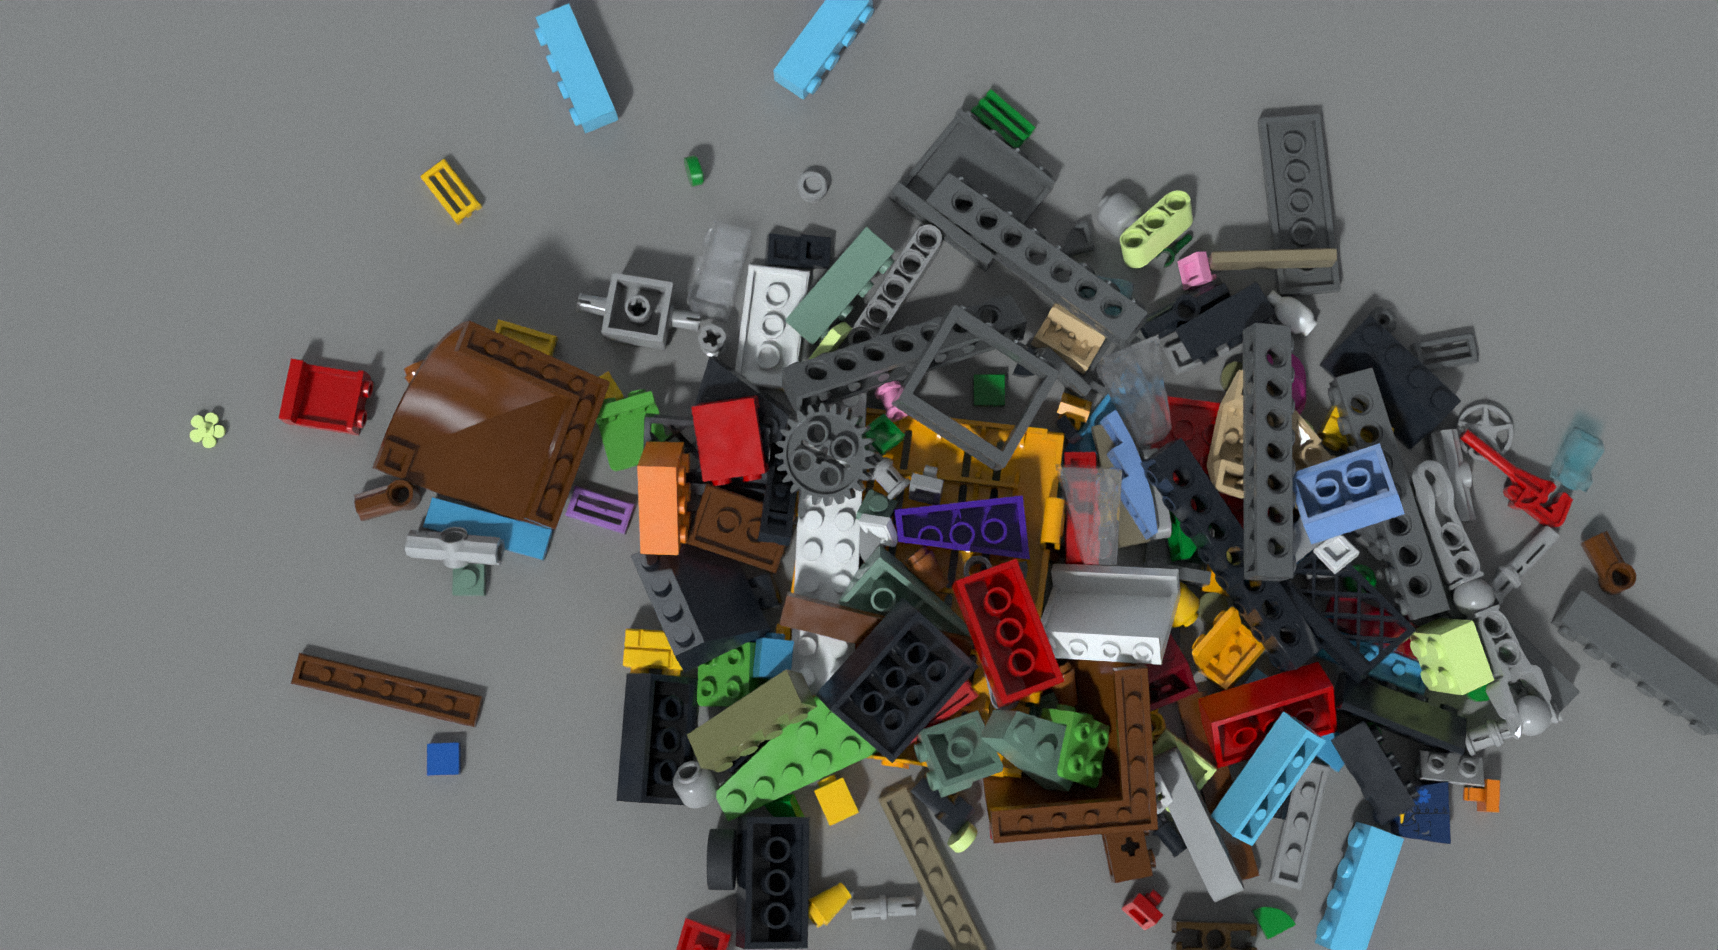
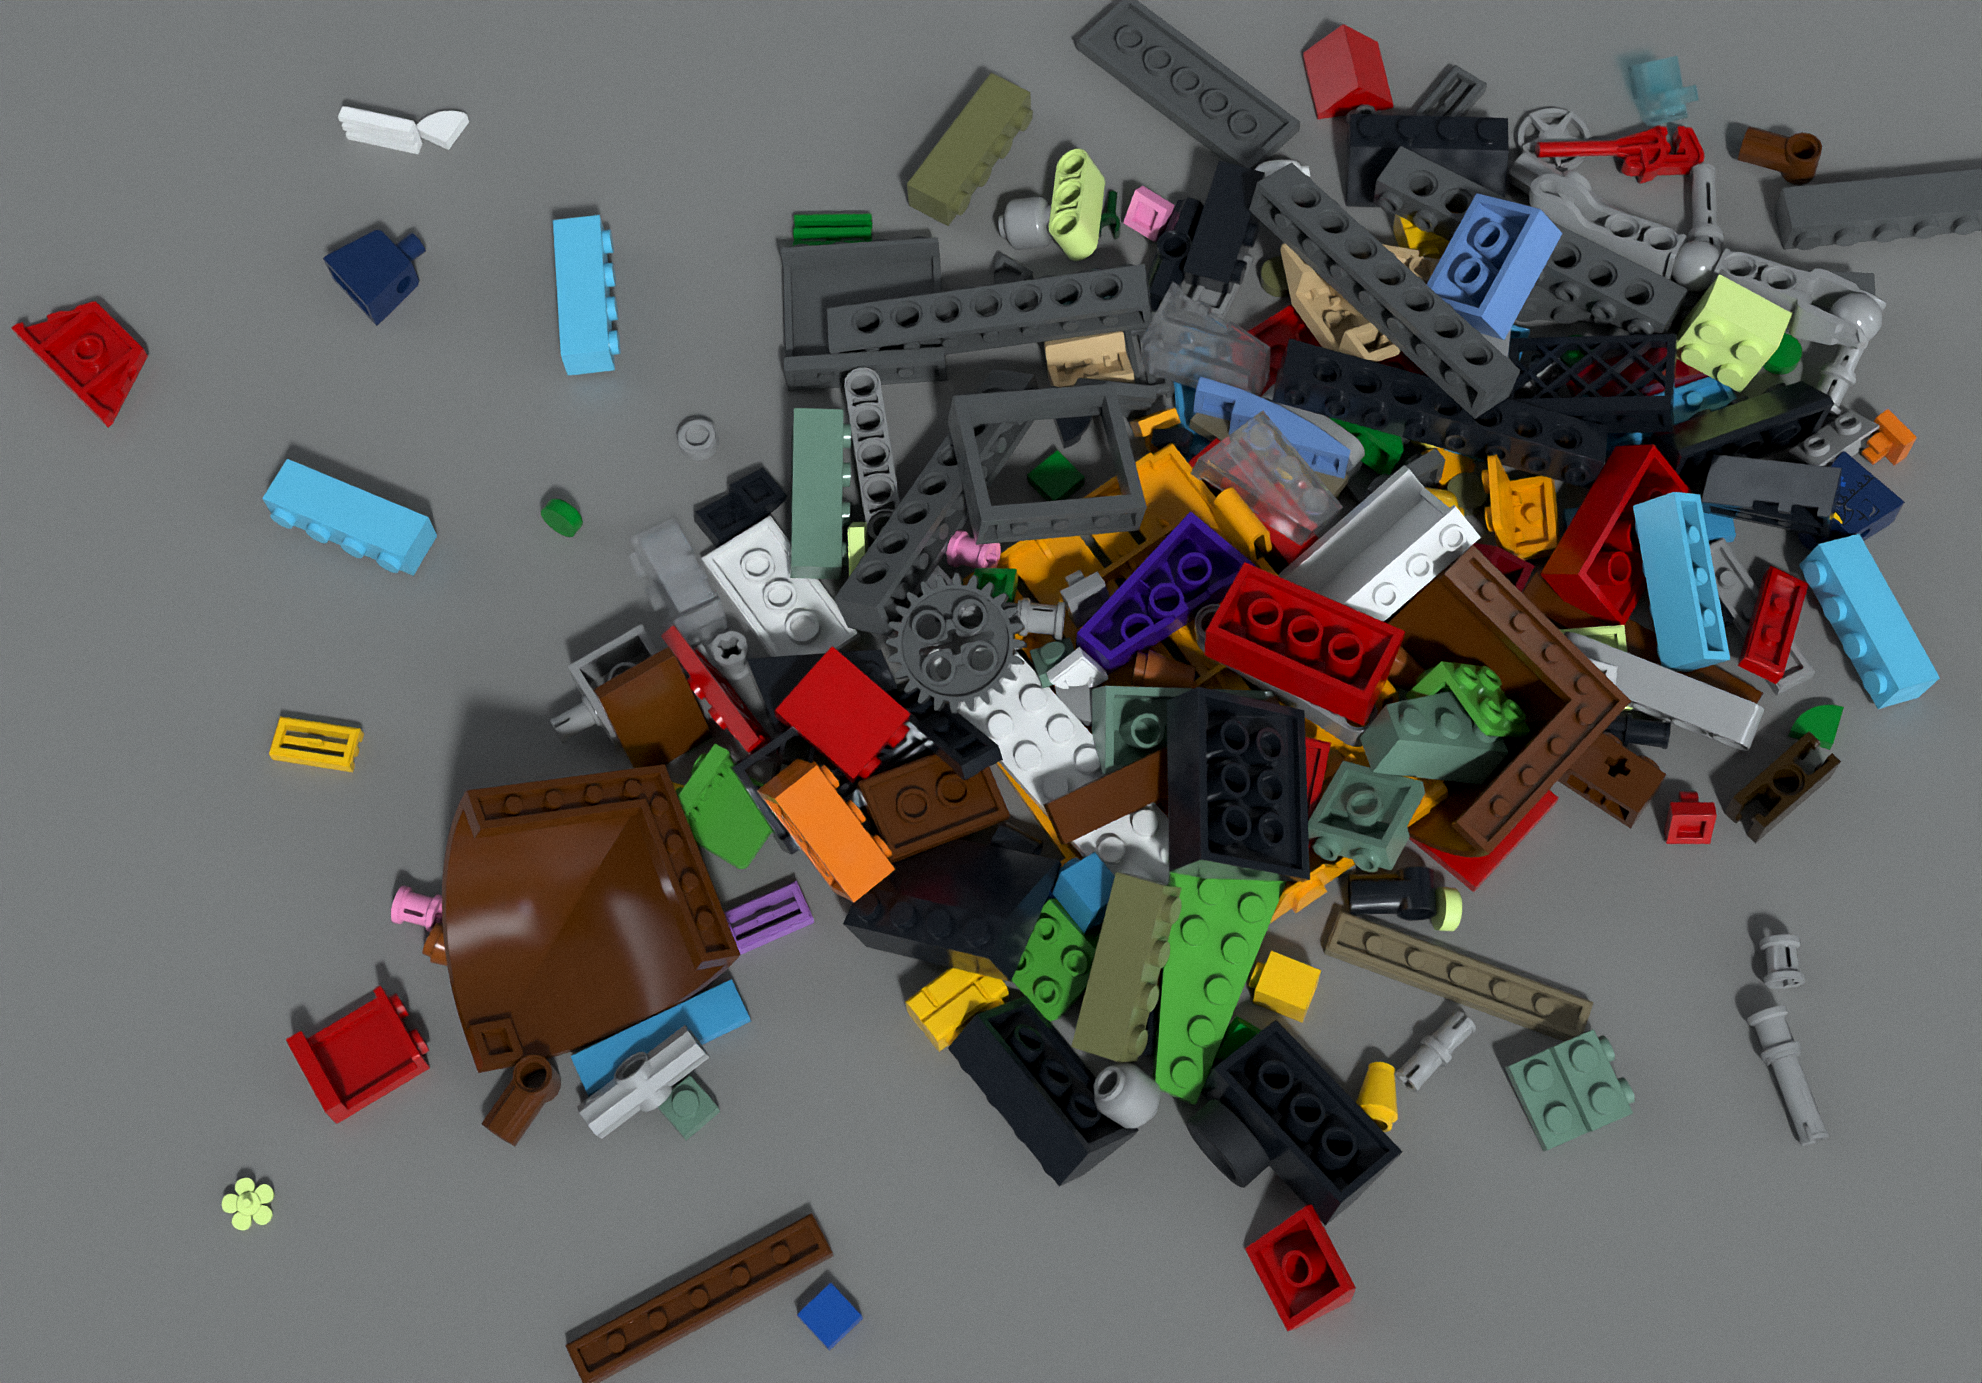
camera: 35 degrees left, 15 degrees down
(421, 339) = (416, 908): none -> bright pink bush
(633, 342) = (653, 711): none -> reddish brown tile
(681, 365) = (707, 682): none -> red wing
(1129, 137) = (970, 149): none -> olive brick
(1272, 259) = (1212, 139): dark tan tile -> none
(1303, 844) = (1773, 625): none -> red tile
(1336, 552) = (1531, 337): white tile -> none
(1401, 281) = (1346, 73): none -> red slope

